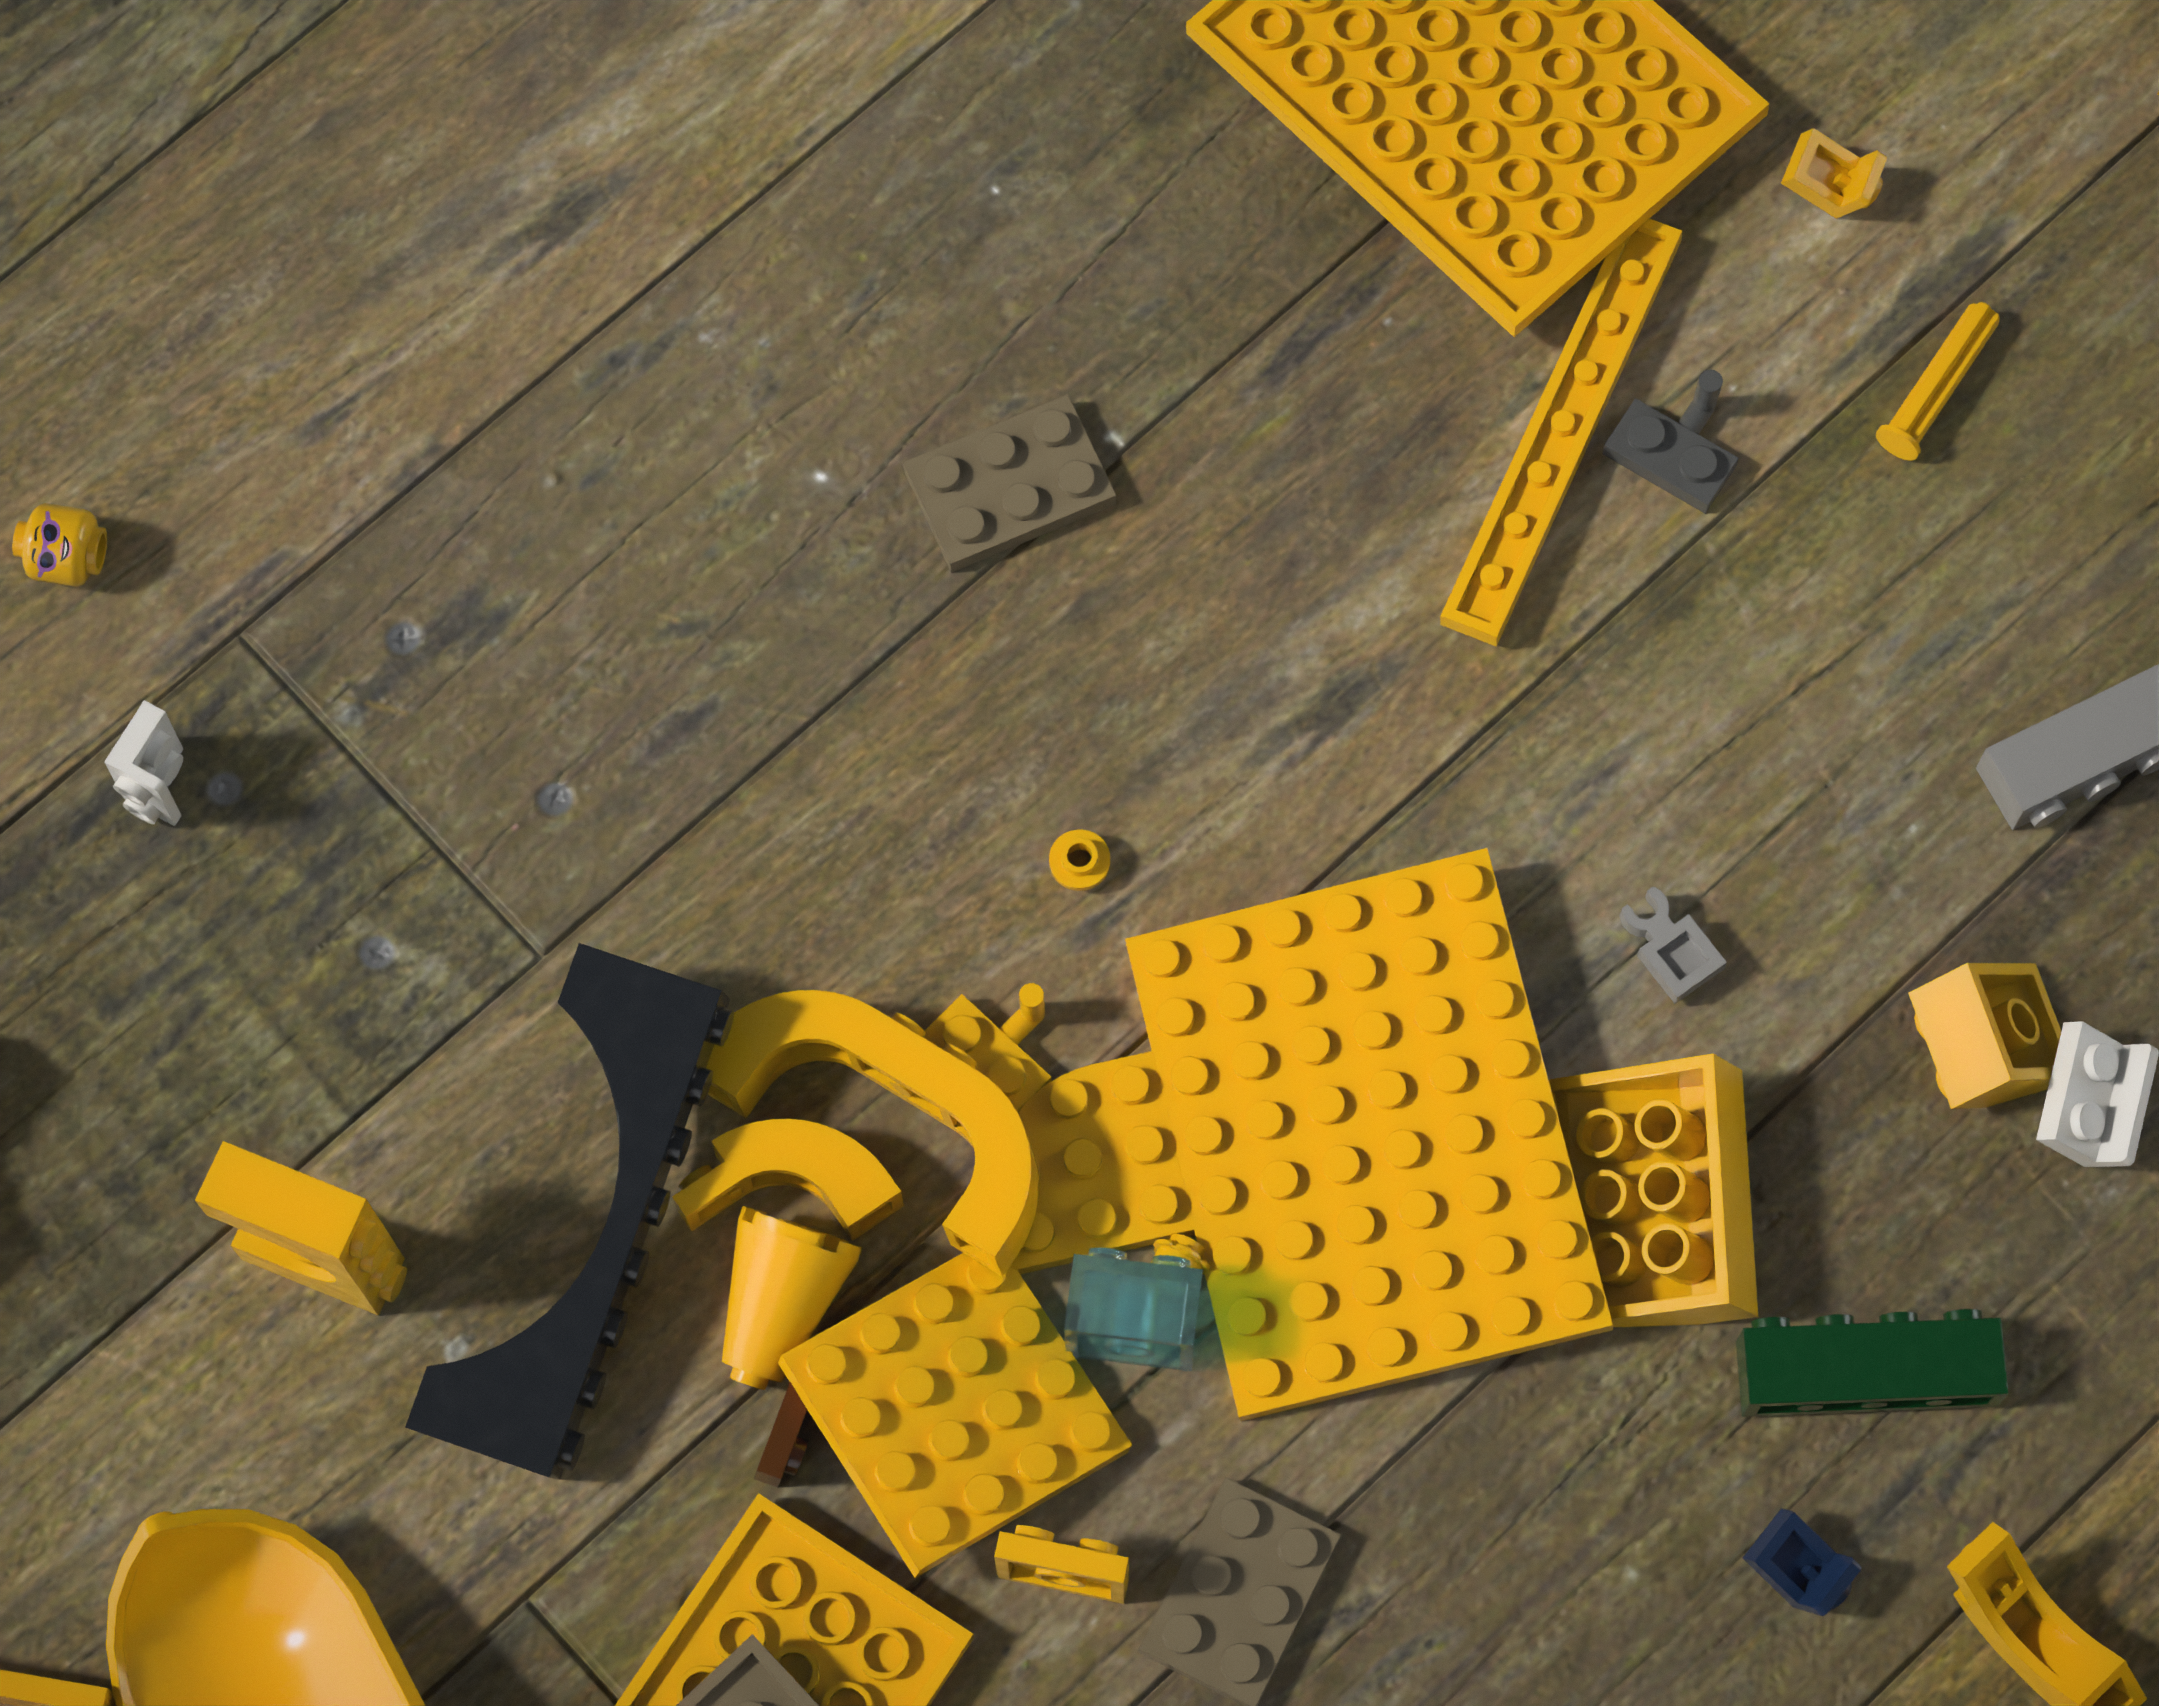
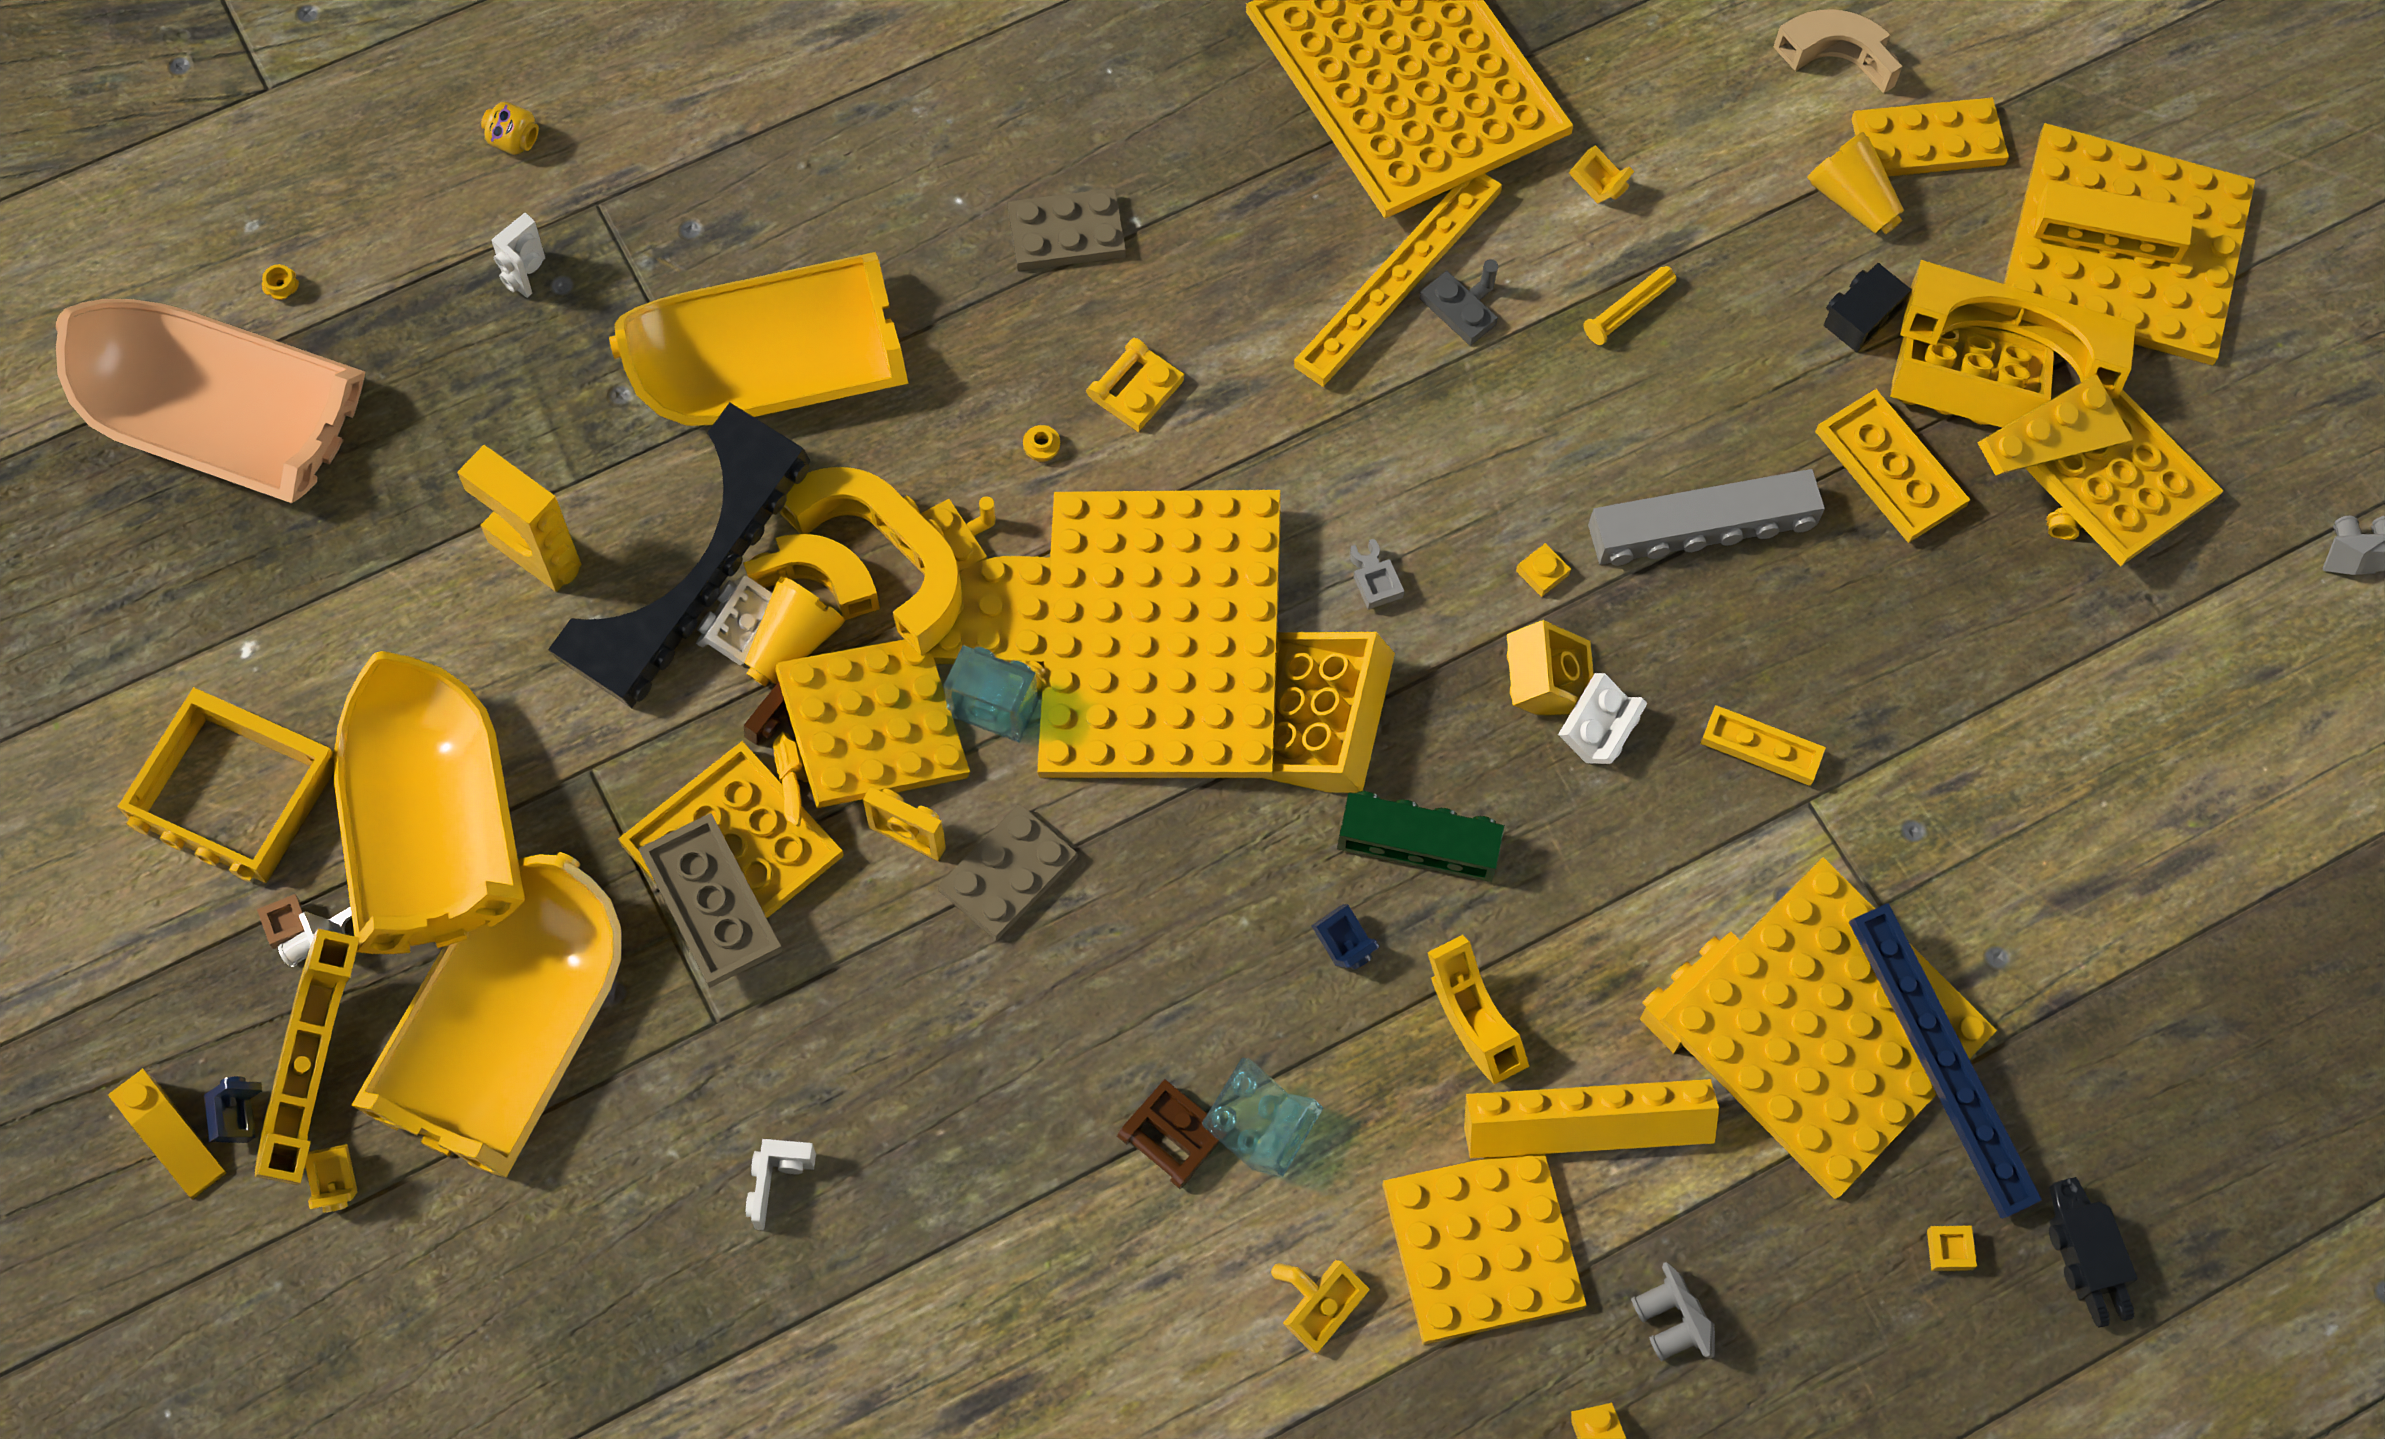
camera: 10 degrees right, 5 degrees down
(590, 813) = (763, 342): none -> yellow panel
(685, 1289) = (736, 619): none -> white bracket
(847, 1518) = (790, 768): none -> yellow piece
(1218, 726) = (1144, 393): none -> yellow plate
(1929, 864) = (1543, 570): none -> yellow plate

